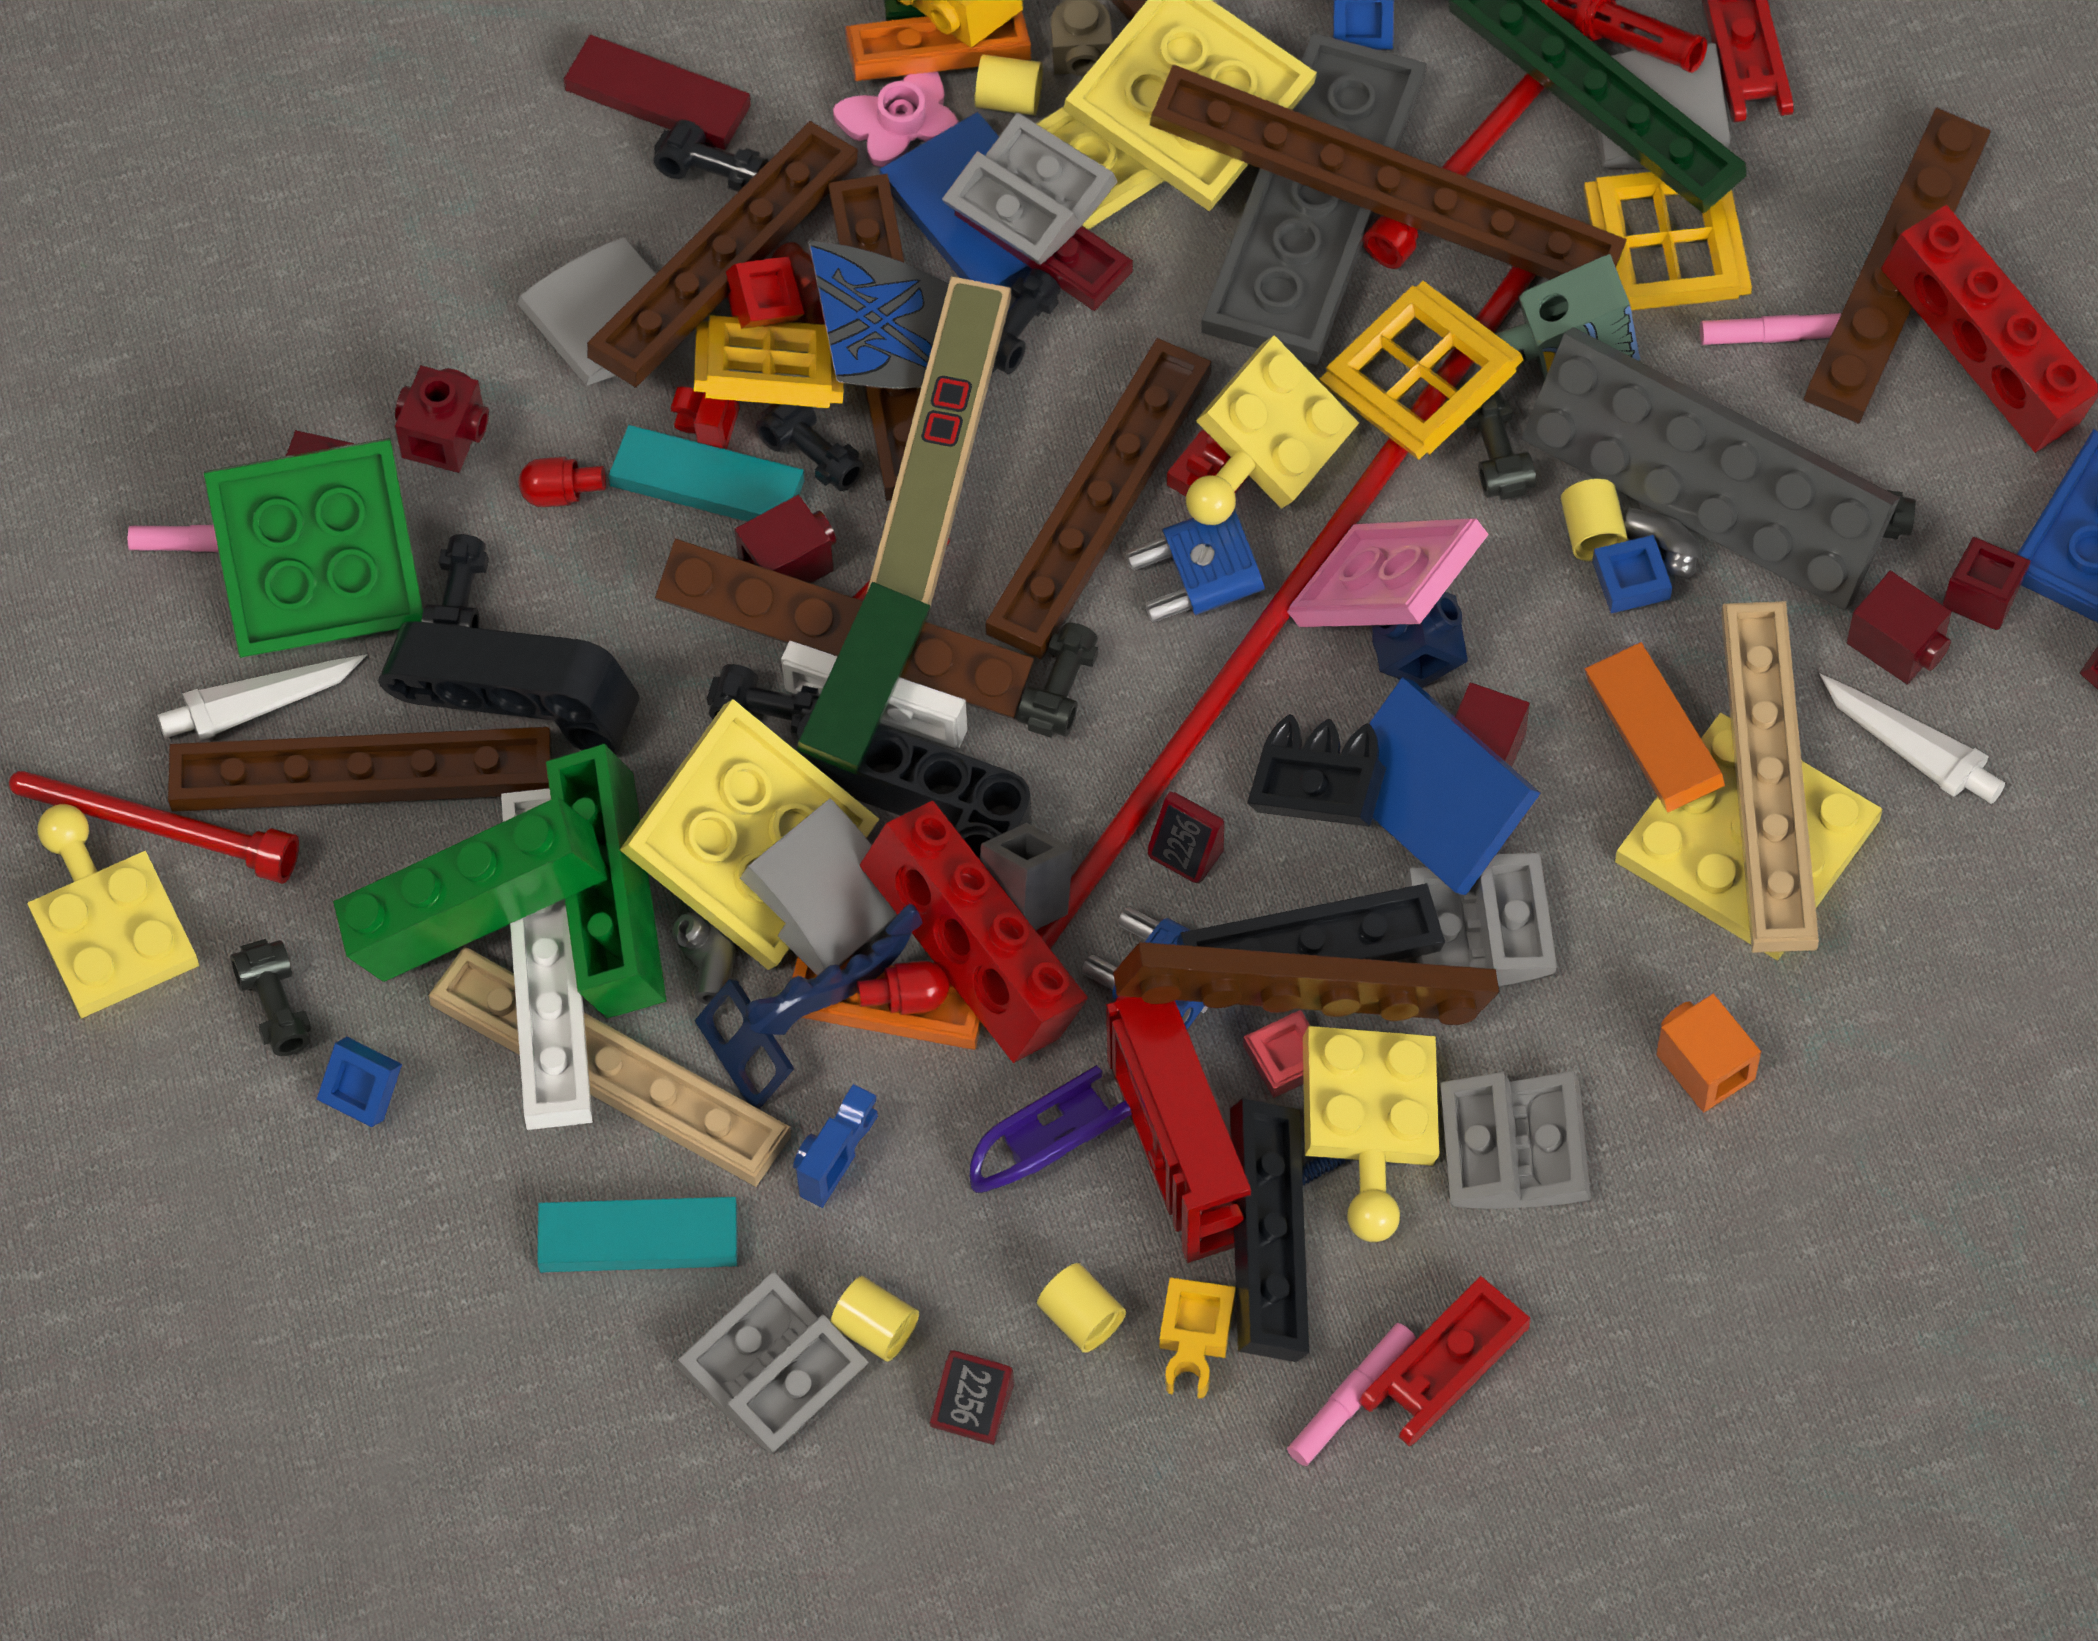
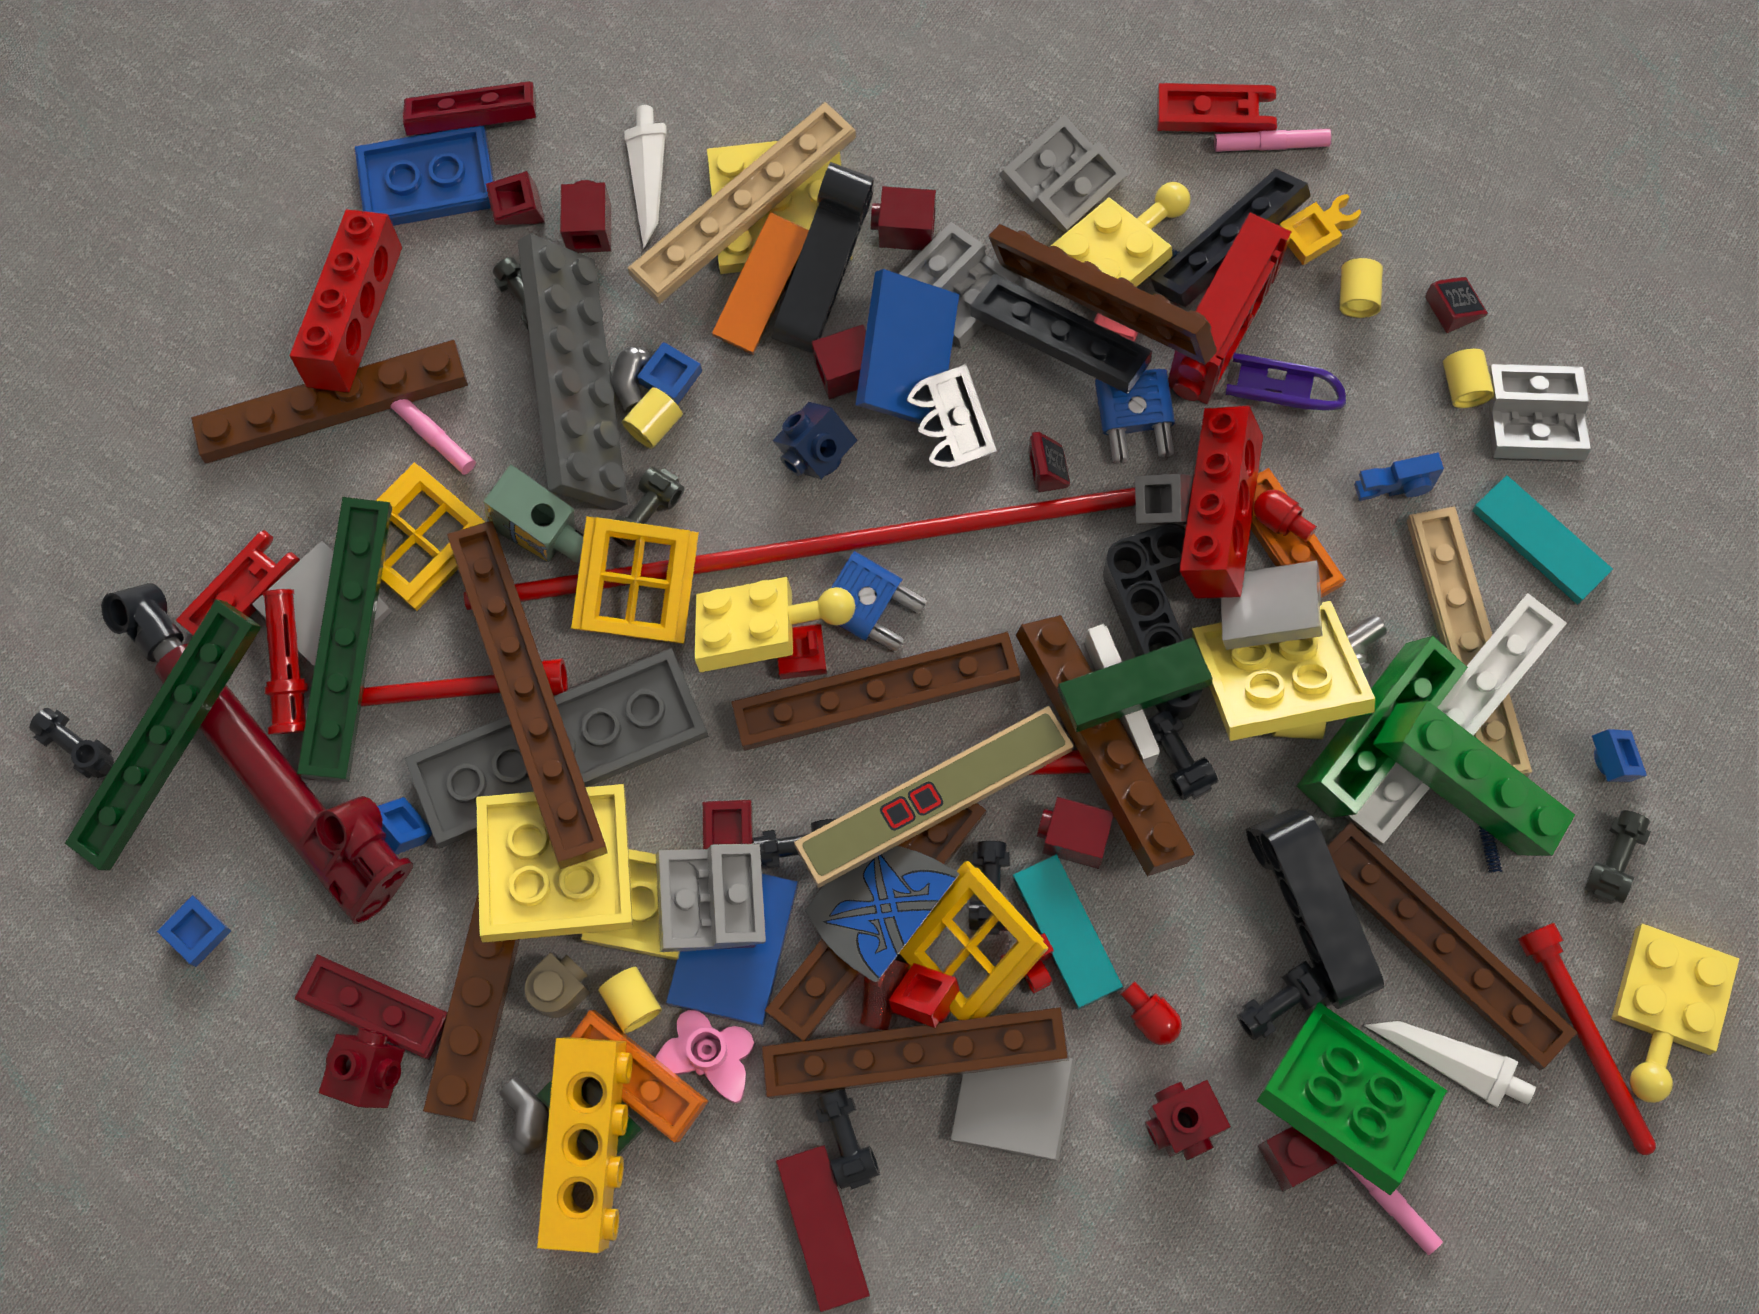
camera: 130 degrees left, 10 degrees up
(800, 997) = (1351, 558): dark blue piece -> none
(1049, 709) = (1038, 600): pearl dark grey bar -> none
(1387, 573) = (800, 469): bright pink tile -> none
(1603, 927) = (904, 218): none -> dark red brick
(1639, 814) = (824, 256): none -> black beam
(1707, 1051) = (931, 118): orange brick -> none

